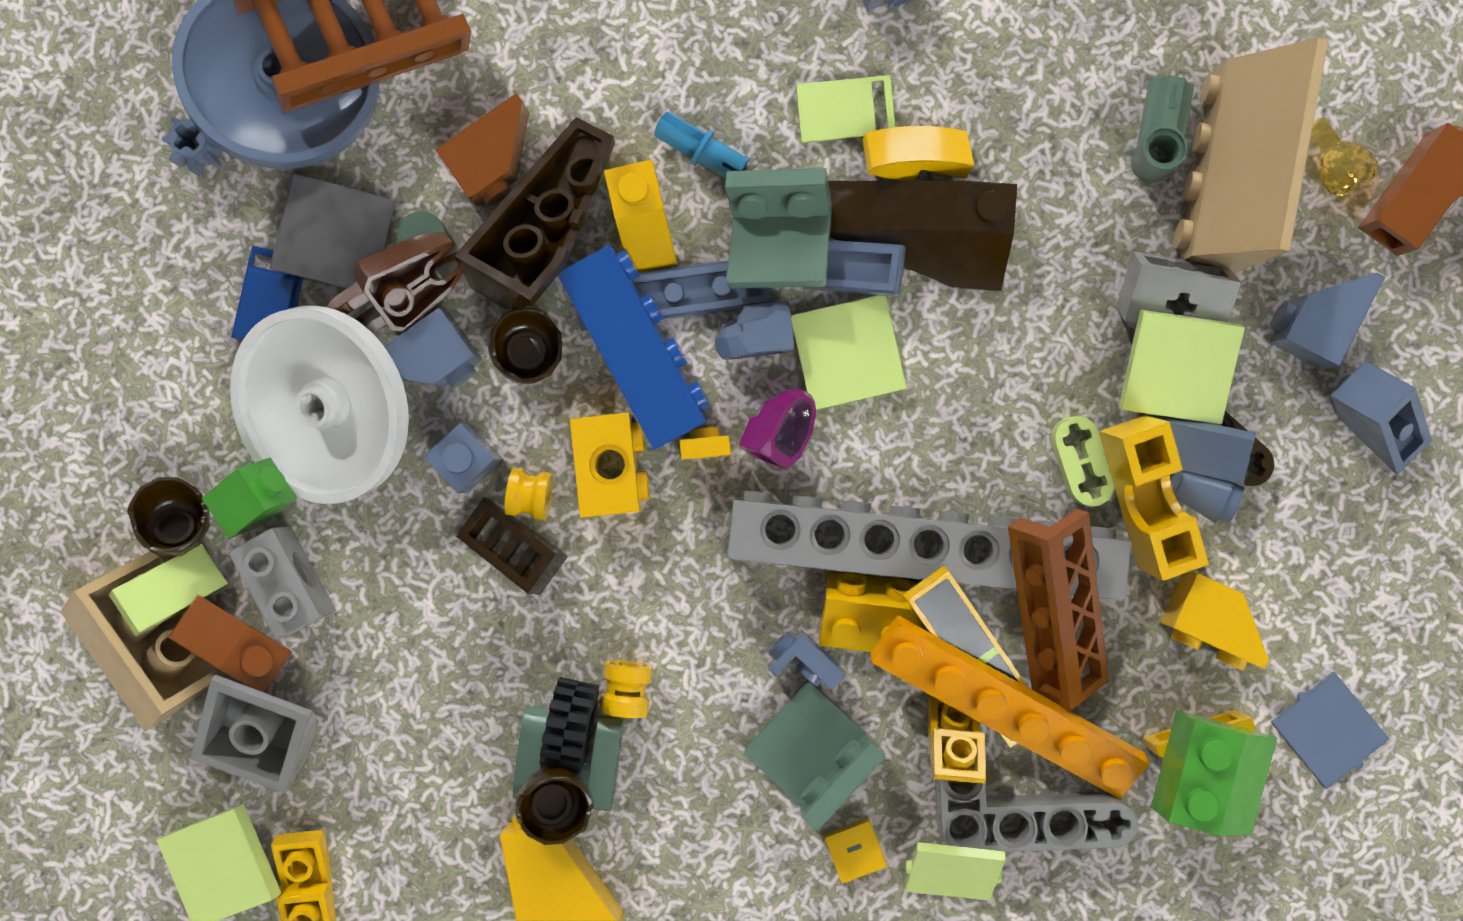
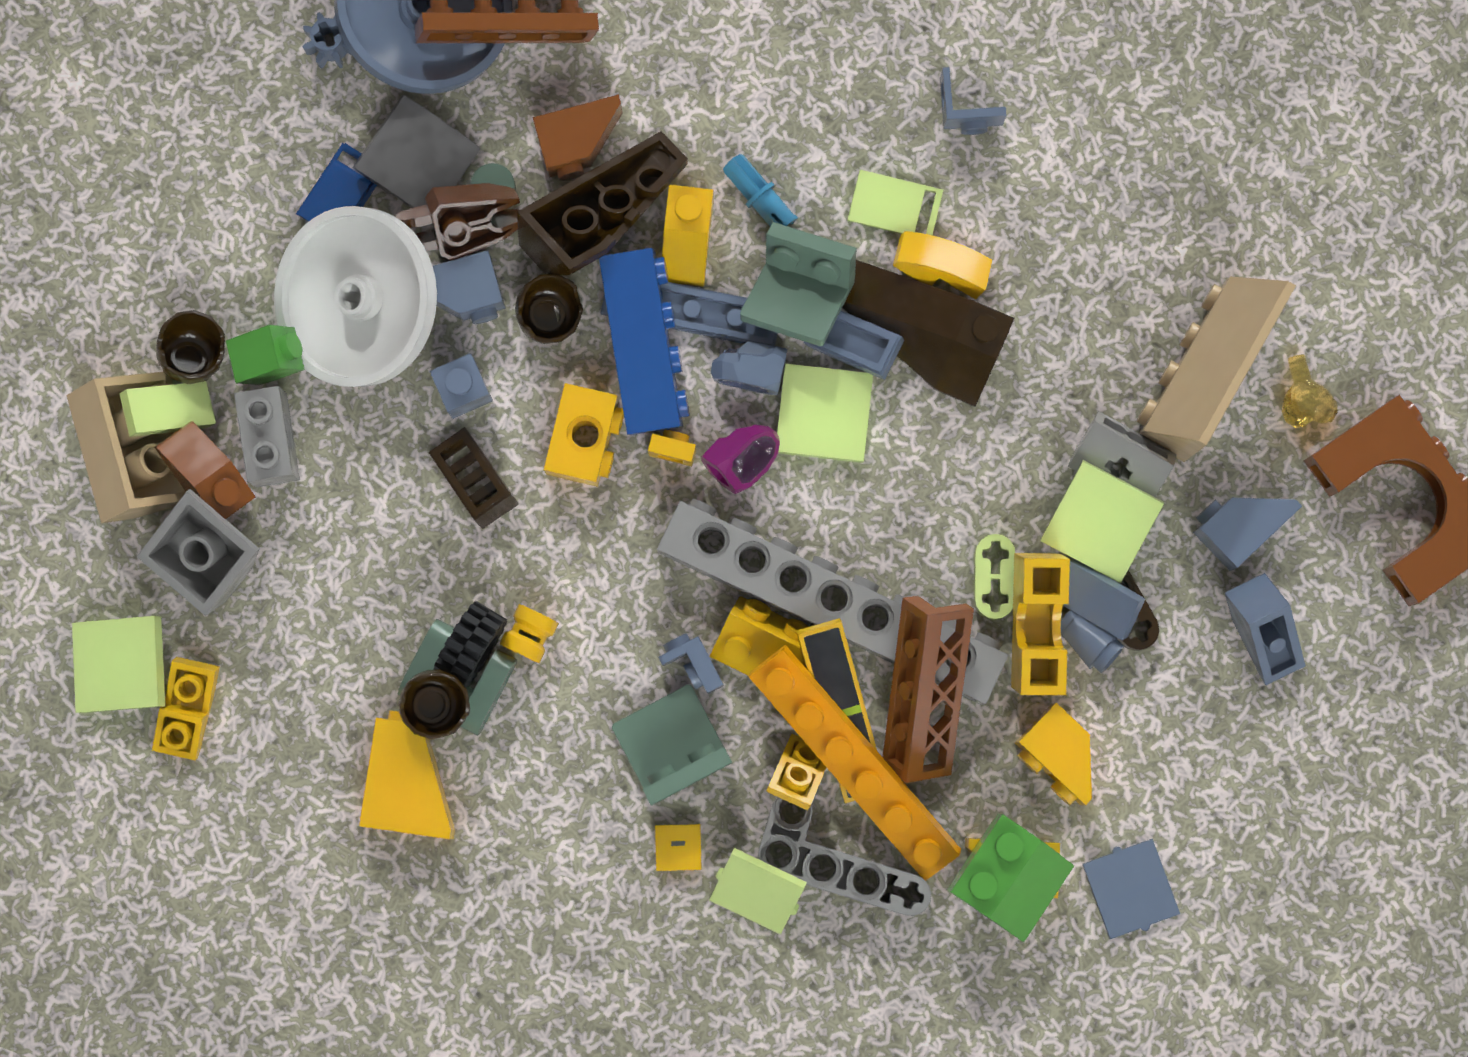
camera: 20 degrees right, 5 degrees down
(529, 493) = (505, 436): yellow wheel -> none
(1163, 127) = (1161, 314): sand green piece -> none

